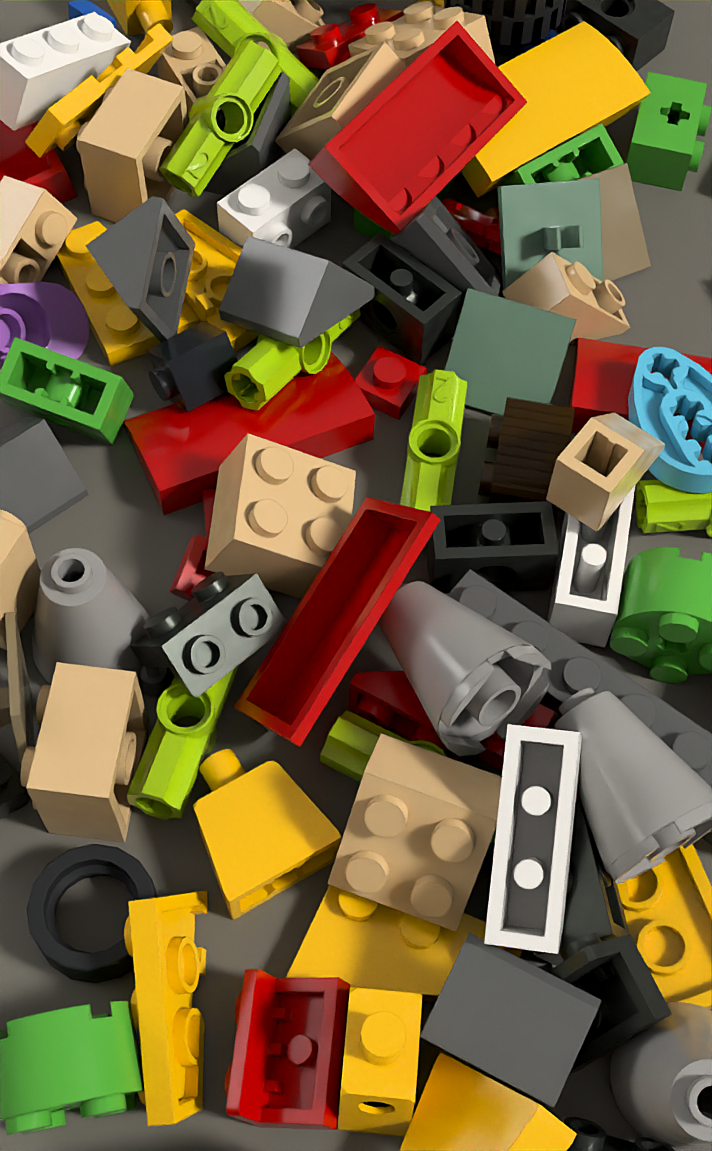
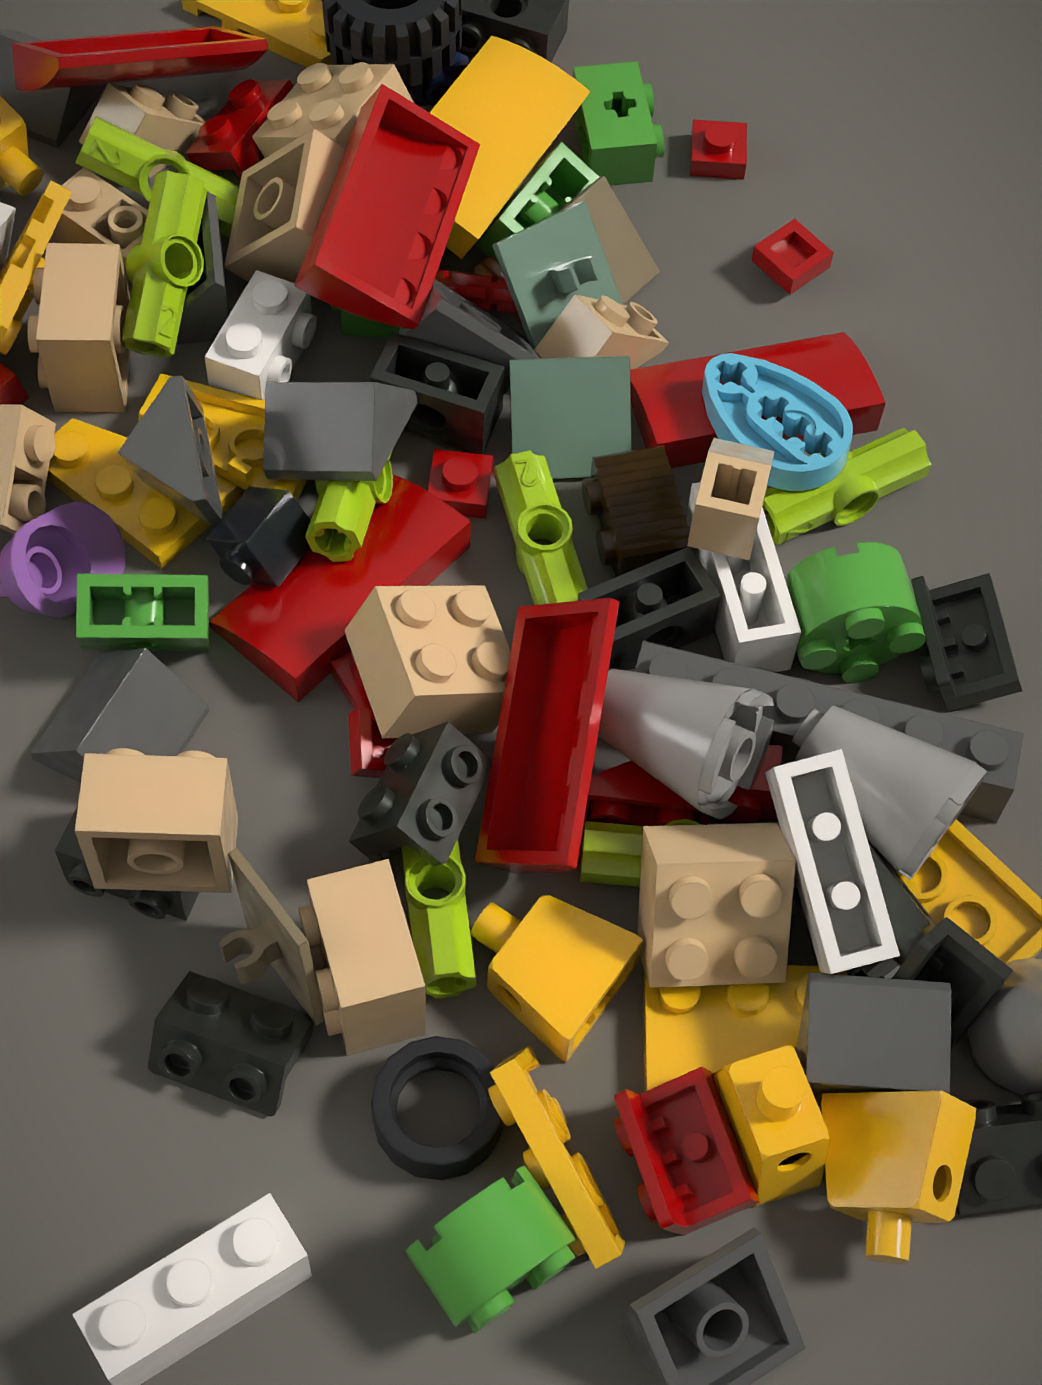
camera: 25 degrees left, 0 degrees up
(85, 616) = (294, 832): light grey cone -> none

